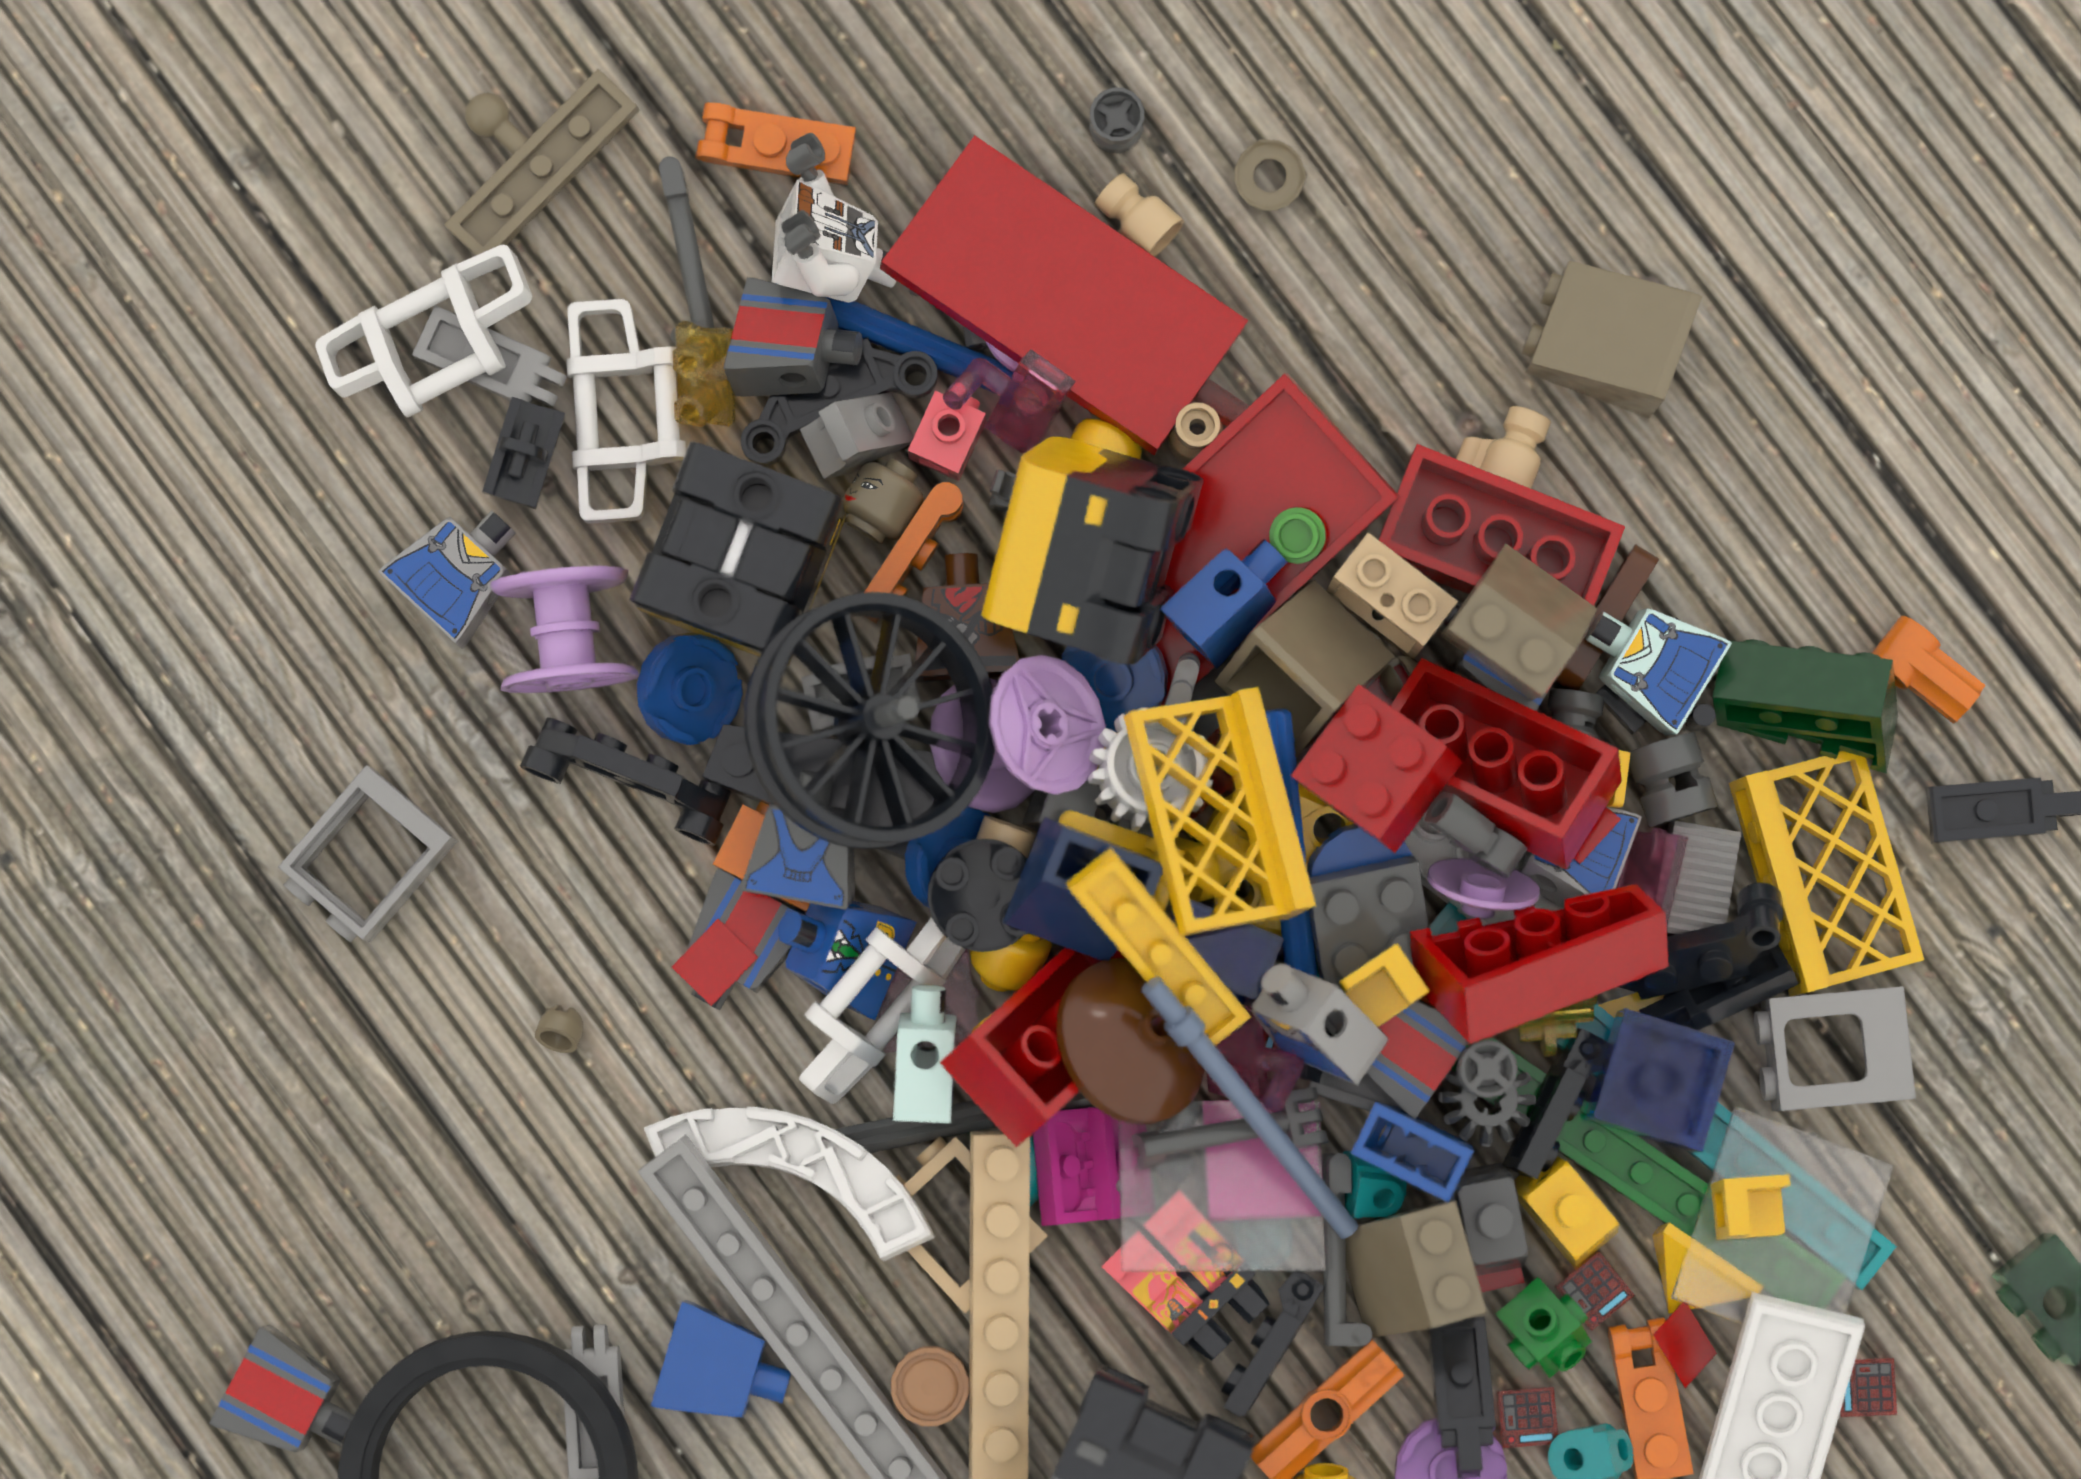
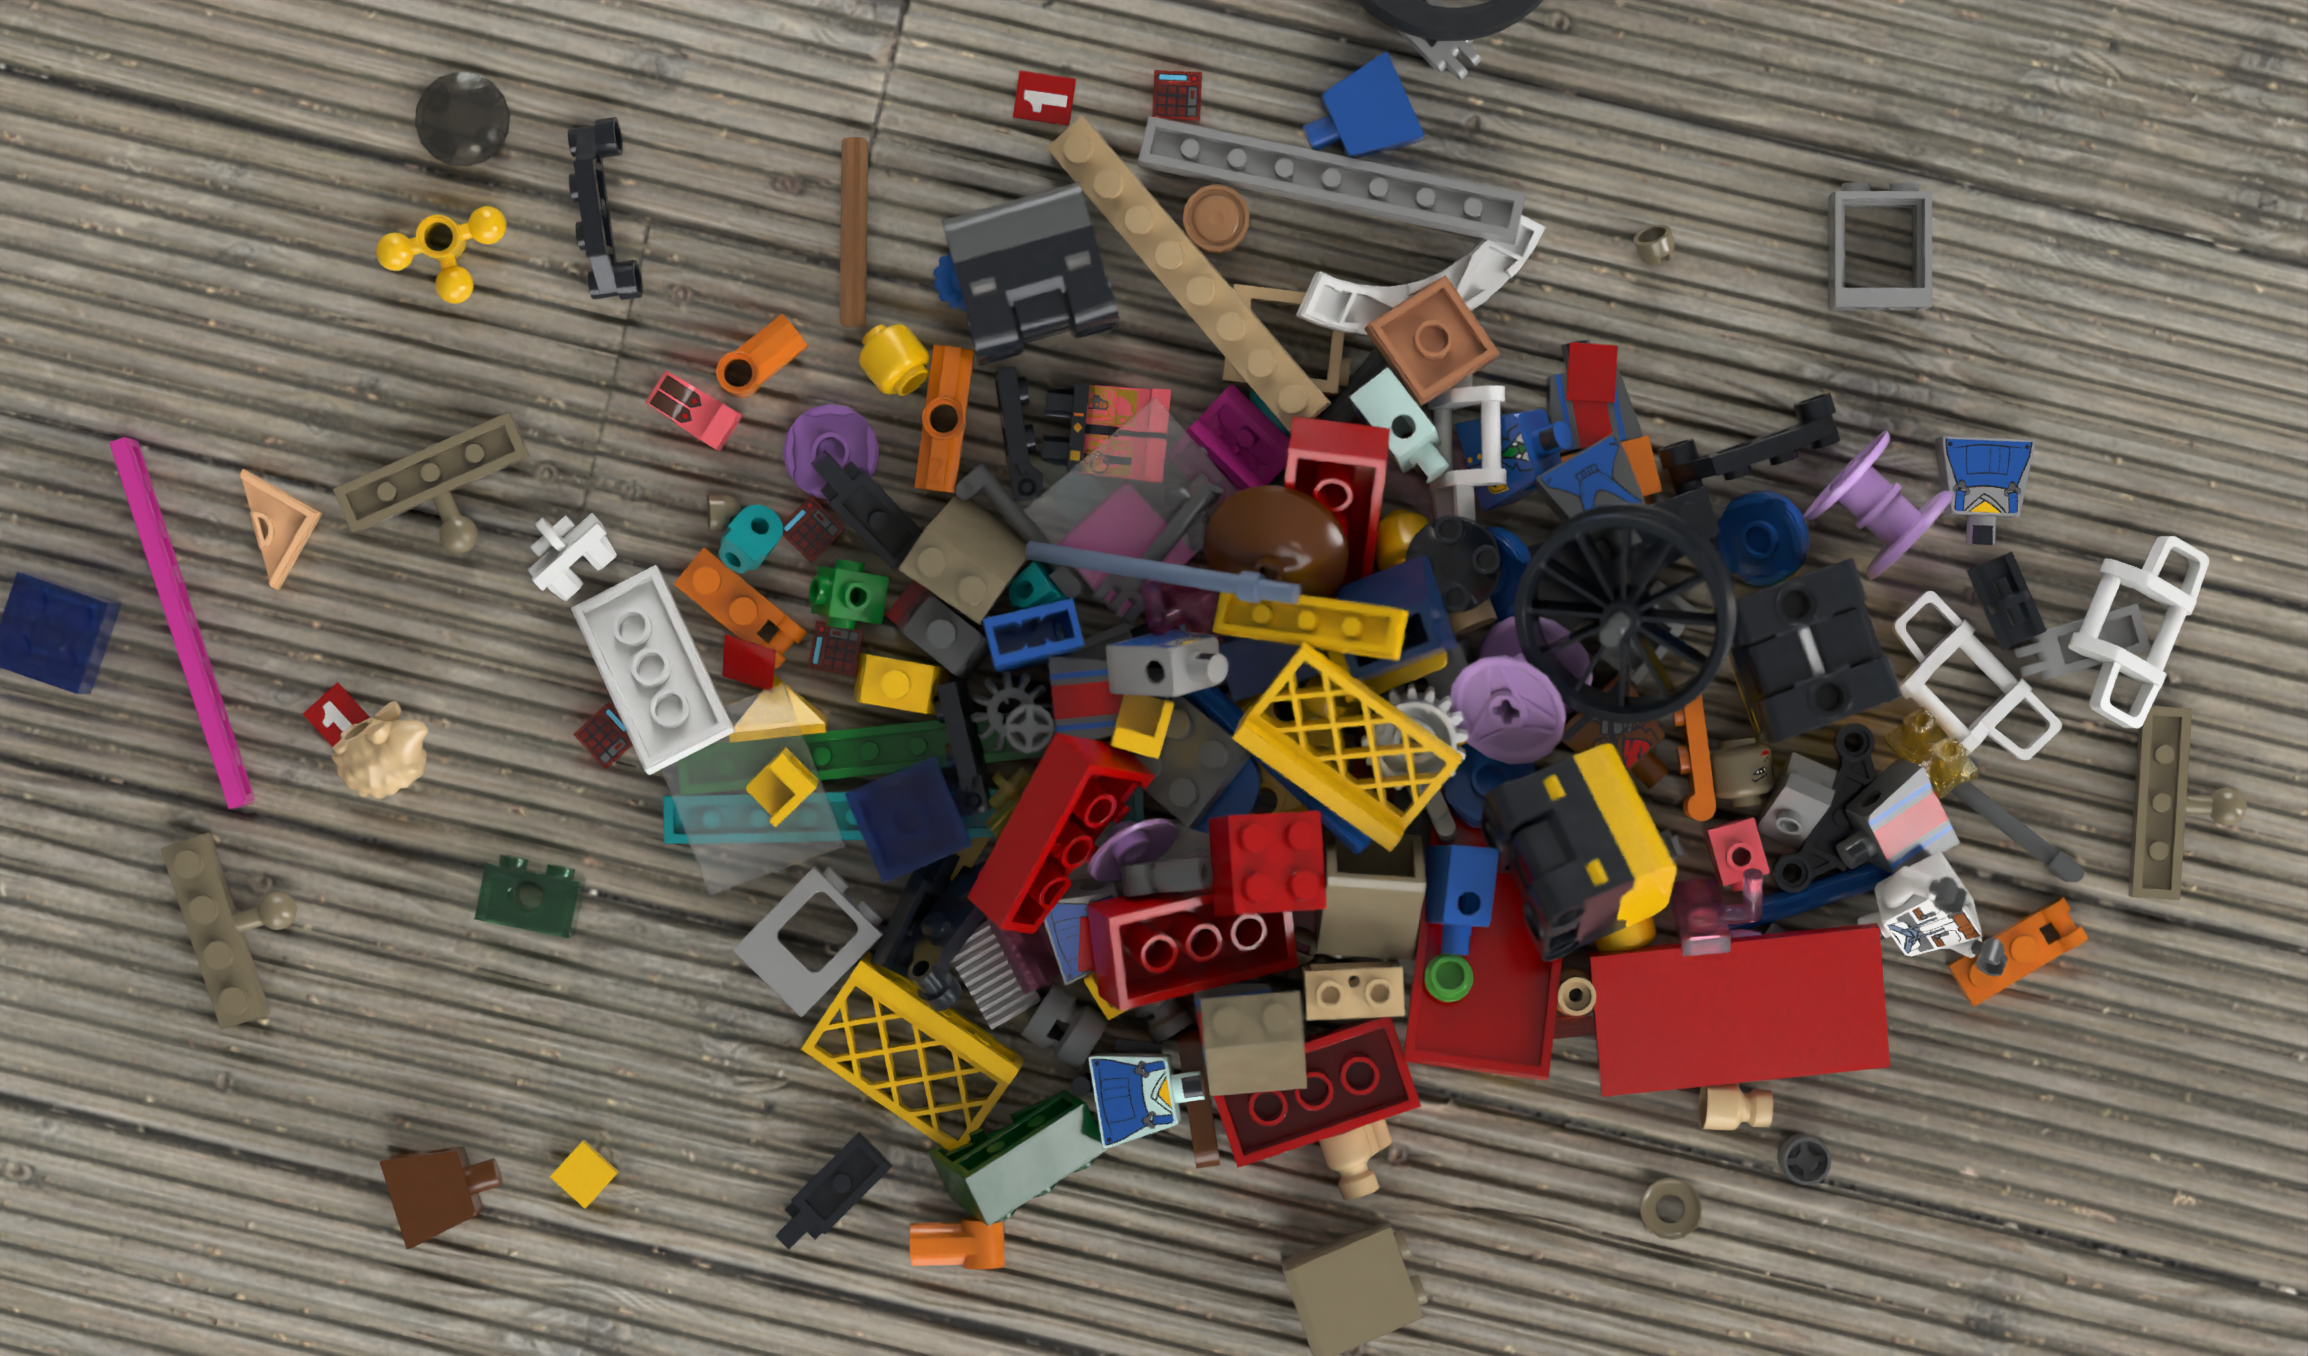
camera: 140 degrees right, 5 degrees up
(833, 1110) = (1432, 341): none -> nougat tile

